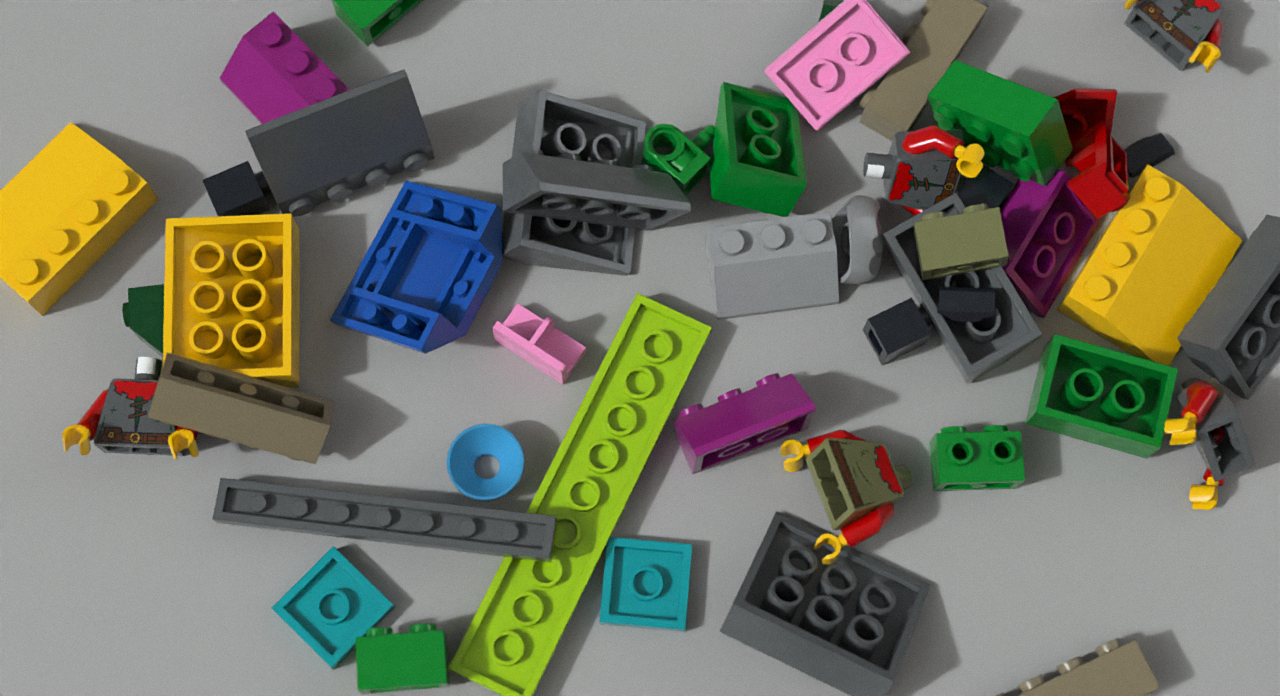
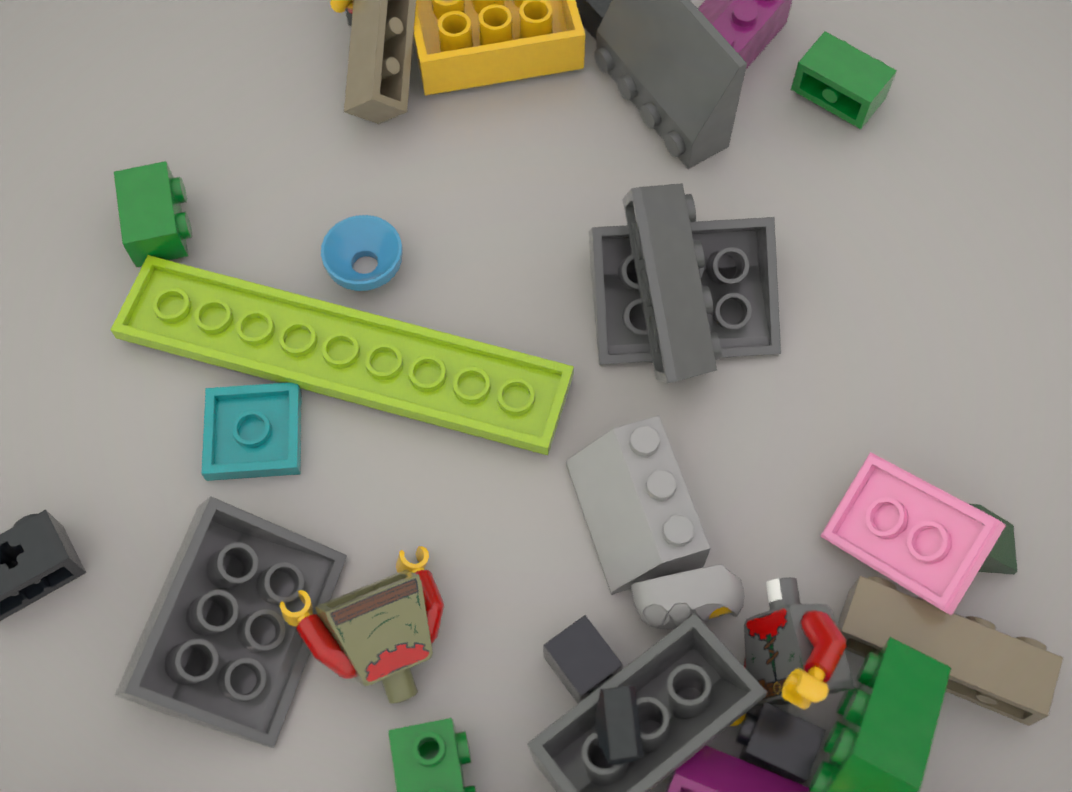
camera: 85 degrees right, 10 degrees down
(333, 607) = (213, 158): teal tile -> none
(386, 519) = (291, 187): dark grey plate -> none
(425, 270) = (553, 171): blue slope -> none
(539, 343) = (500, 285): bright pink panel -> none
(687, 162) = (735, 393): green piece -> none
(743, 421) = (440, 493): magenta slope -> none
(757, 151) = (772, 462): green slope -> none
(960, 241) = (694, 698): olive brick -> none

